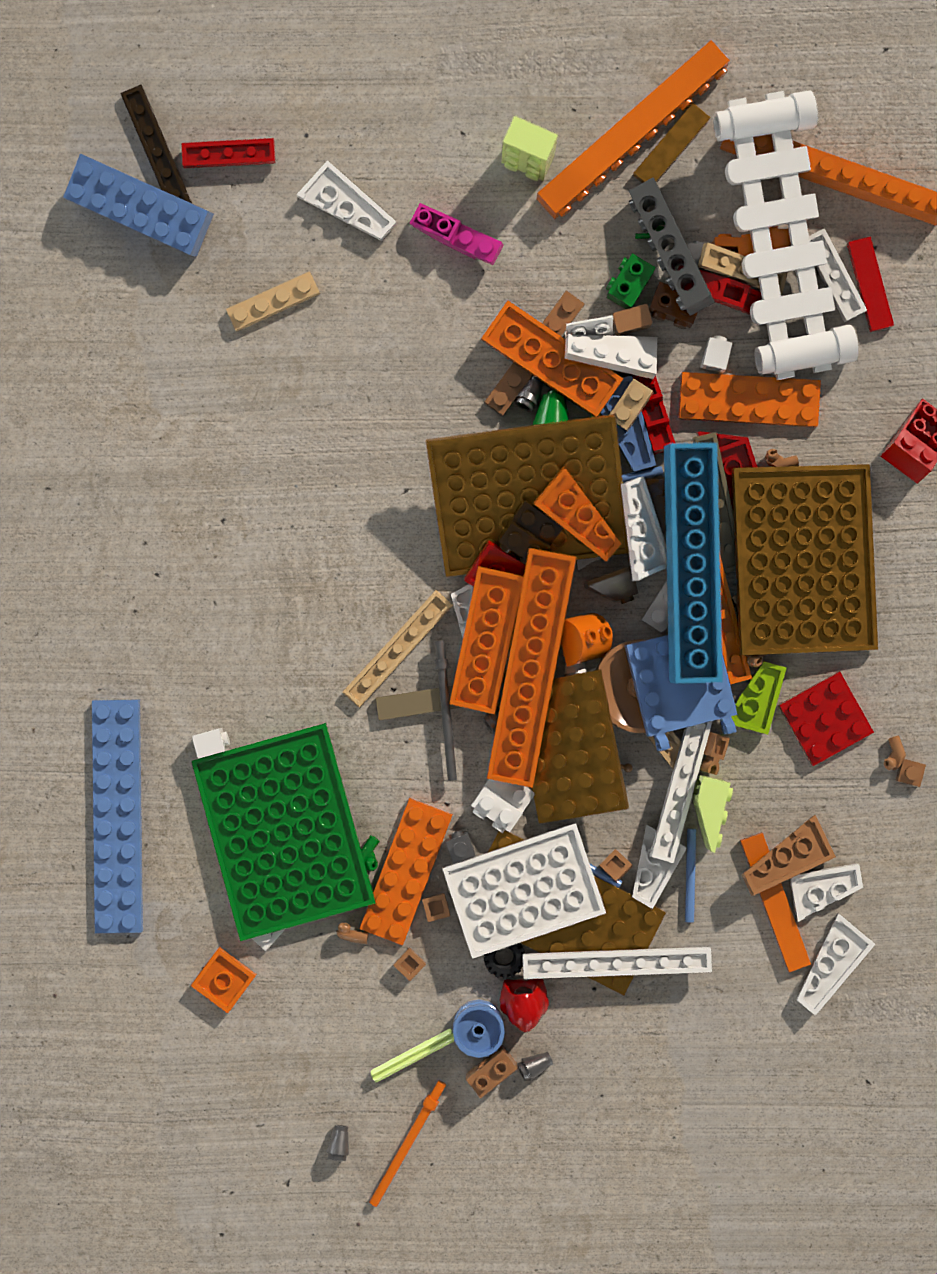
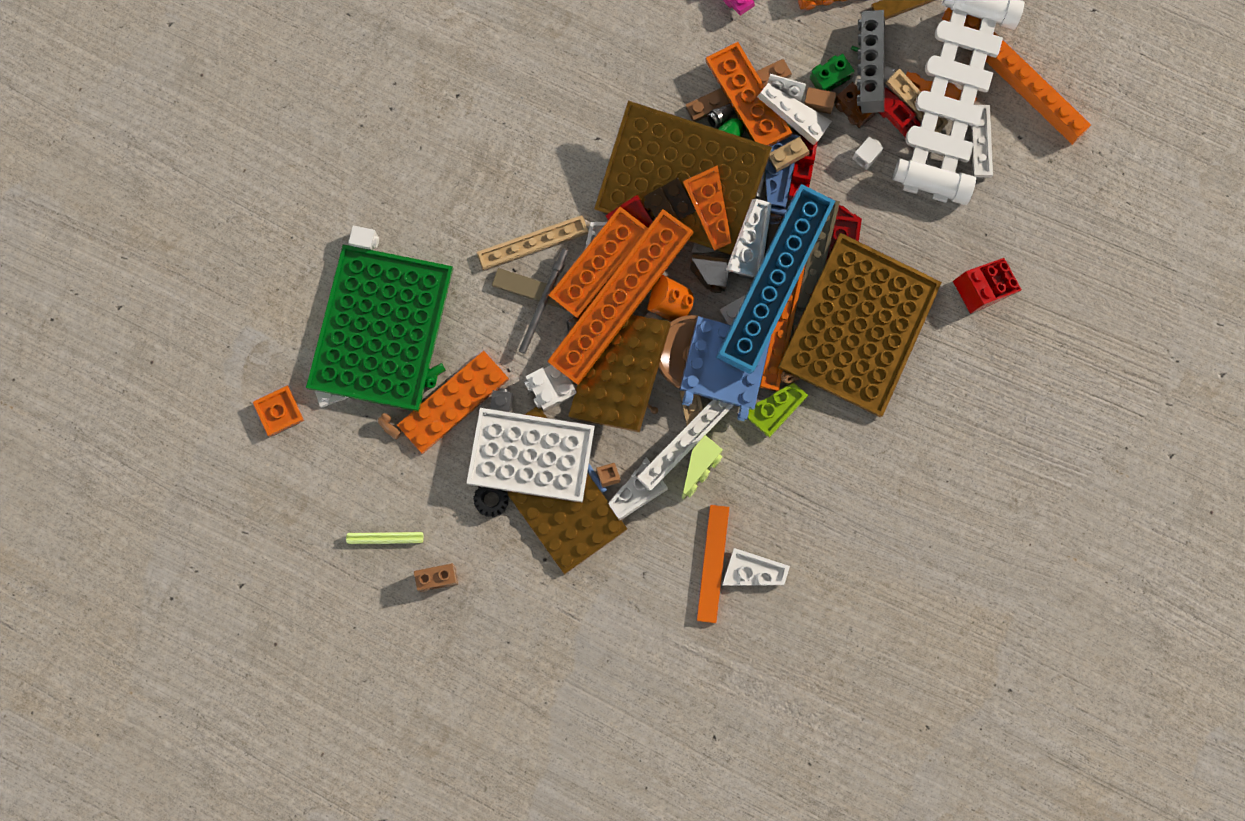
camera: 25 degrees right, 10 degrees down
(117, 816) = (268, 259): medium blue plate -> none
(339, 1143) = (294, 574): flat silver cone -> none
(409, 964) = (419, 469): medium nougat plate -> none
(430, 1104) = (377, 580): orange bar -> none
(436, 907) = (460, 438): medium nougat plate -> none
(481, 1042) = (432, 536): medium blue wheel -> none
(524, 1009) = (488, 539): red piece -> none
(534, 1065) = (470, 591): flat silver cone -> none
(617, 962) = (571, 543): white plate -> none
(690, 875) = (660, 511): medium blue bar -> none
(715, 750) = (725, 429): medium nougat plate -> none
(749, 399) = (876, 196): orange plate -> none
(775, 460) = (873, 243): medium nougat arm -> none
(792, 856) = (745, 534): medium nougat wing -> none
(826, 718) = (819, 448): red plate -> none
(834, 963) = (738, 629): white wing -> none
(870, 284) = (1004, 160): red tile -> none
(897, 755) = (859, 501): medium nougat arm -> none
(911, 772) = (862, 520): medium nougat plate -> none

